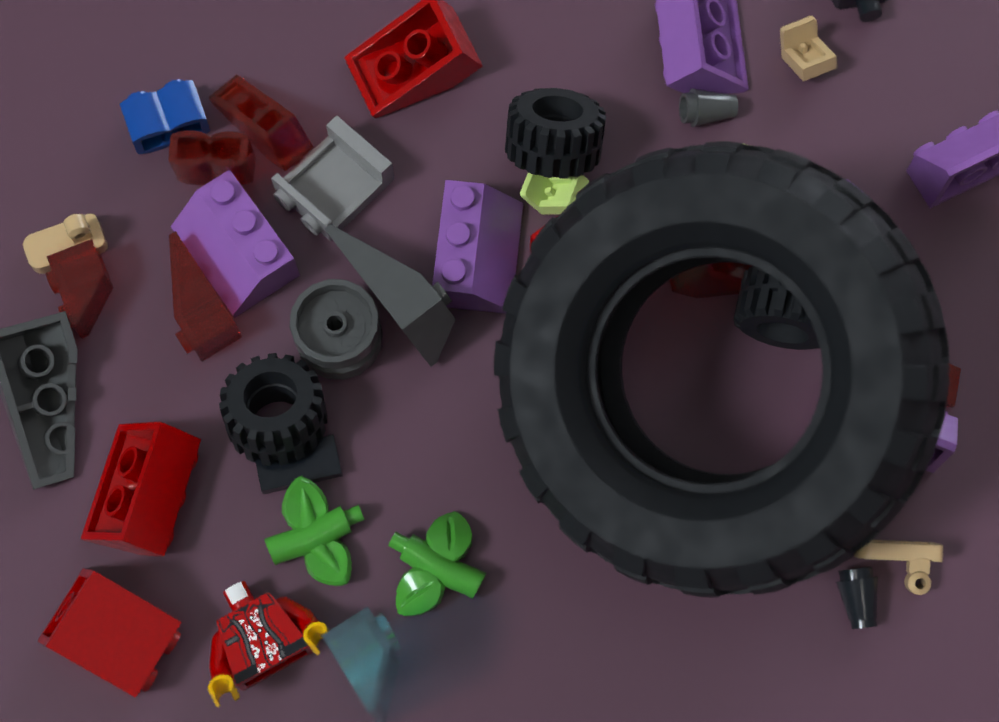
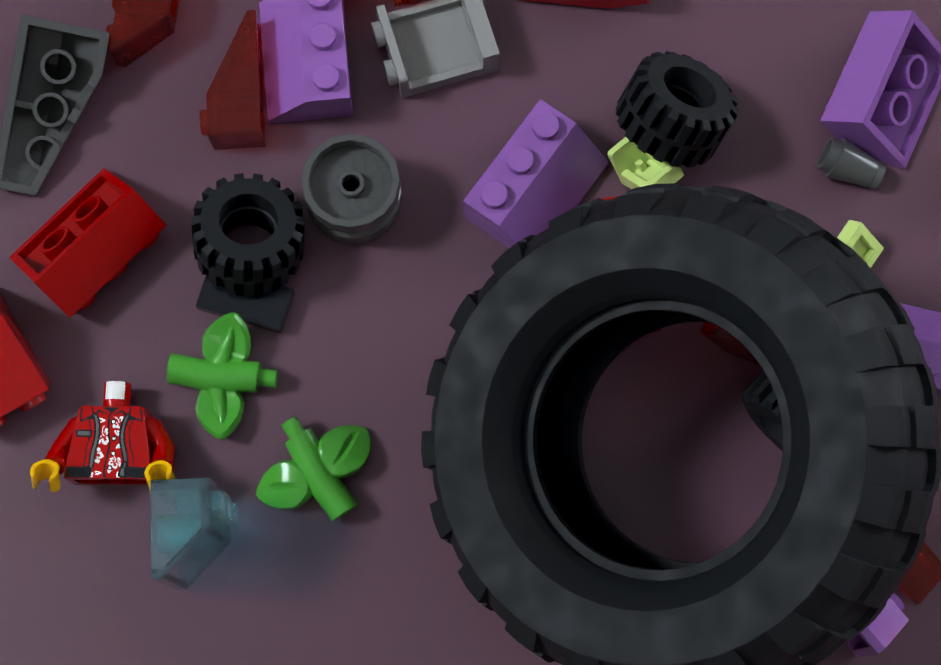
camera: 30 degrees right, 5 degrees up
(403, 292) = (431, 198): dark grey wedge -> none

